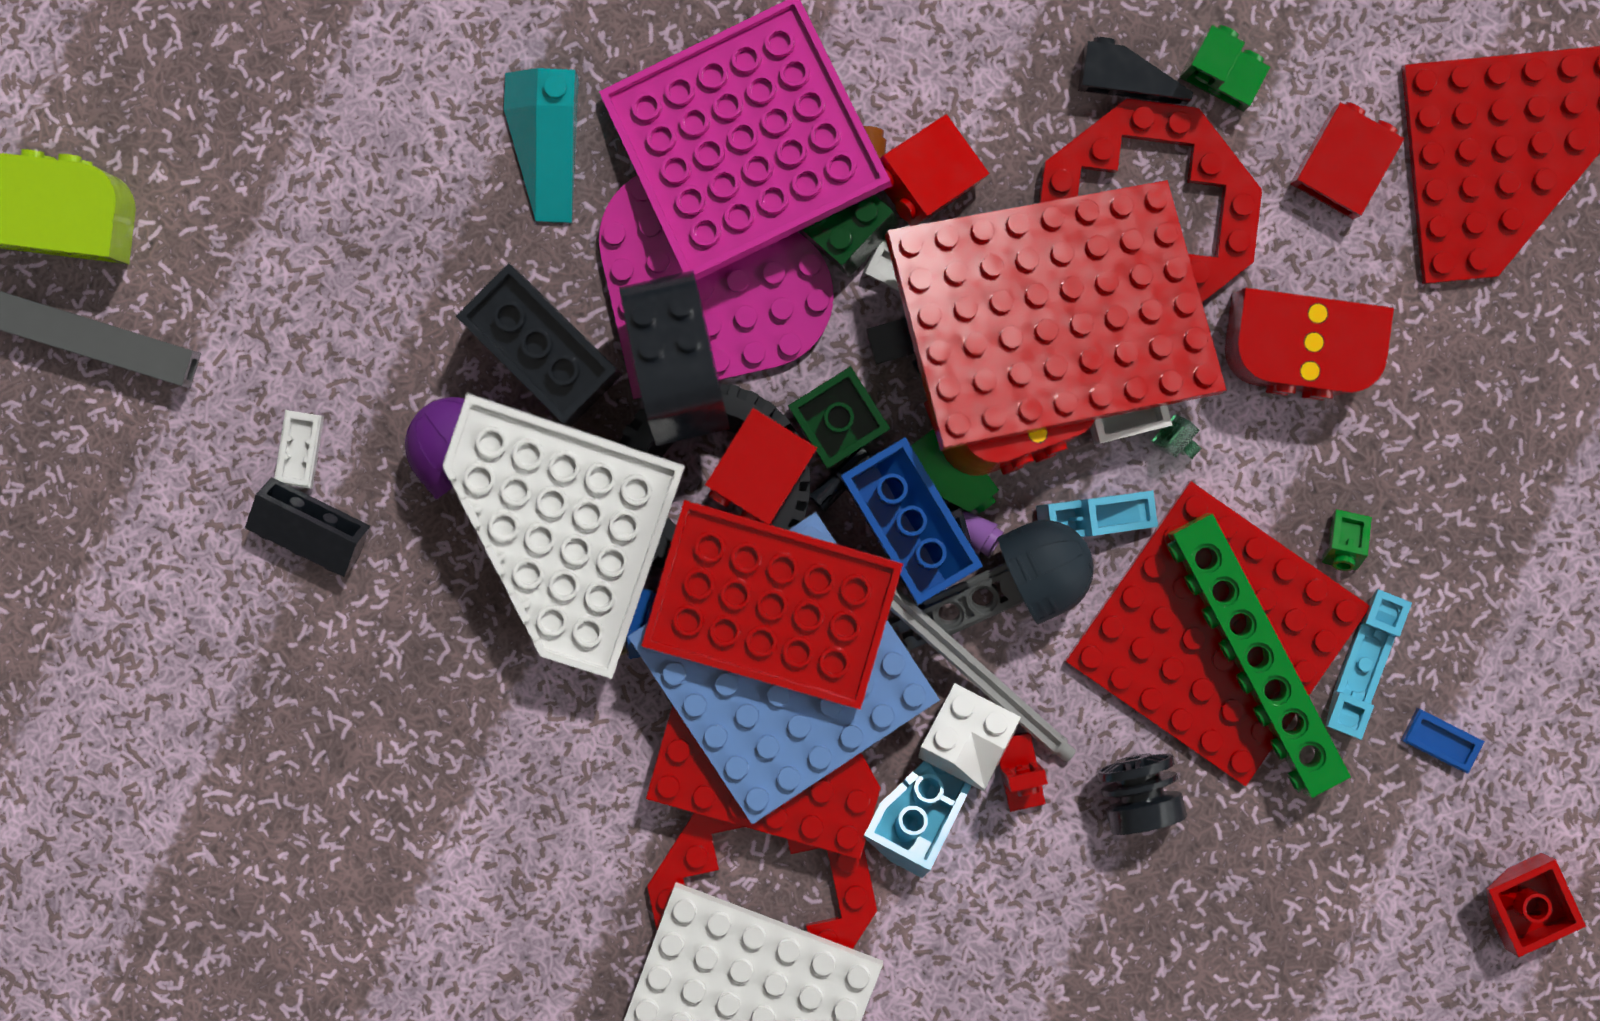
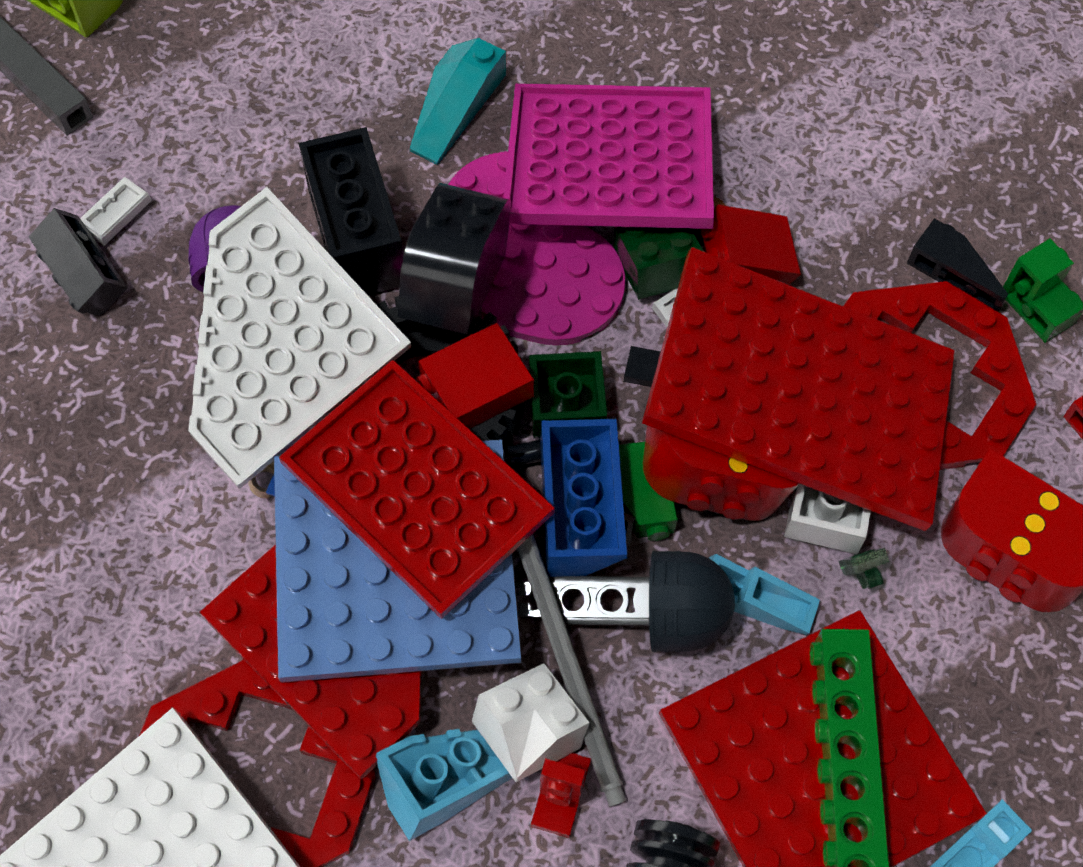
camera: 25 degrees right, 25 degrees down
(982, 533) = (638, 555): medium lavender cone -> none
(1348, 540) = (989, 741): green bracket -> none

